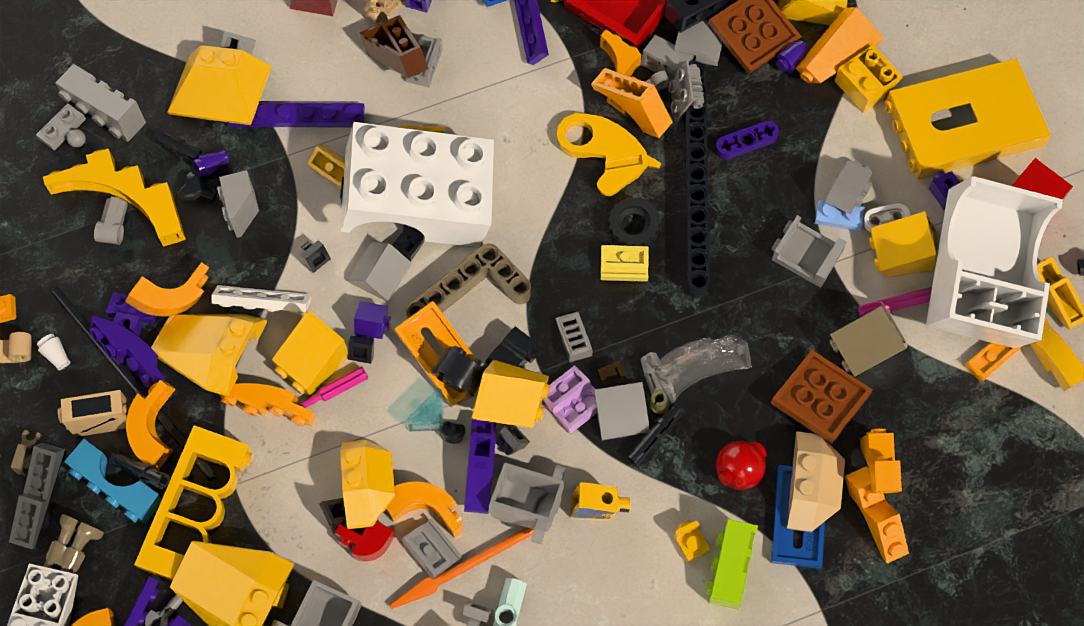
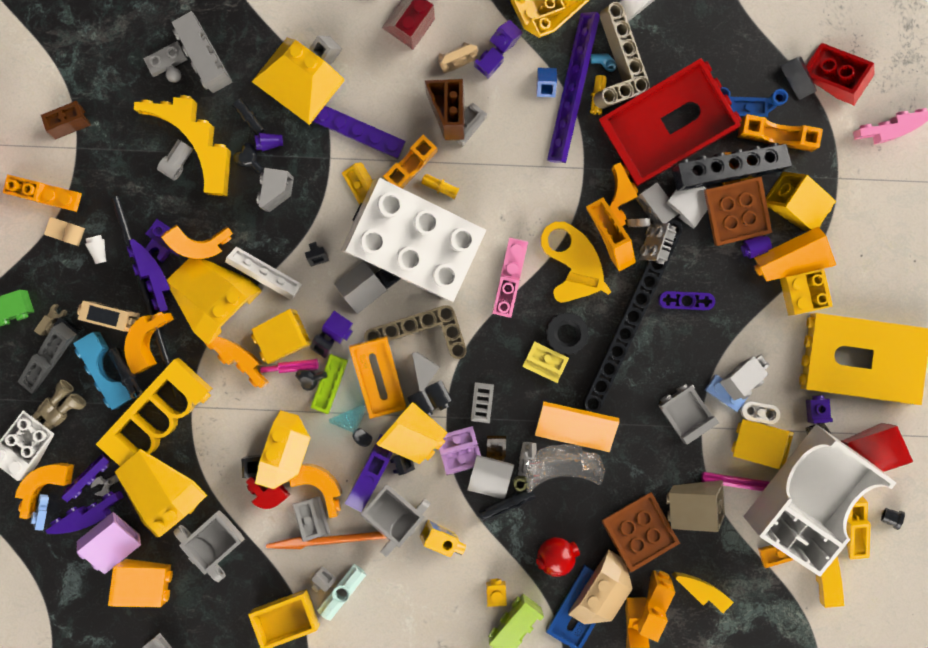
camera: 25 degrees right, 20 degrees up
(362, 390) = (309, 379): none -> black rock
(386, 105) = (412, 163): none -> light orange arch
(388, 388) = (329, 386): none -> lime plate
(459, 371) = (383, 402): black brick -> none
(490, 318) = (424, 369): none -> light grey slope
(542, 190) = (510, 277): none -> bright pink slope
(692, 313) = (576, 426): none -> light orange tile
(928, 432) = (704, 591): none -> yellow slope

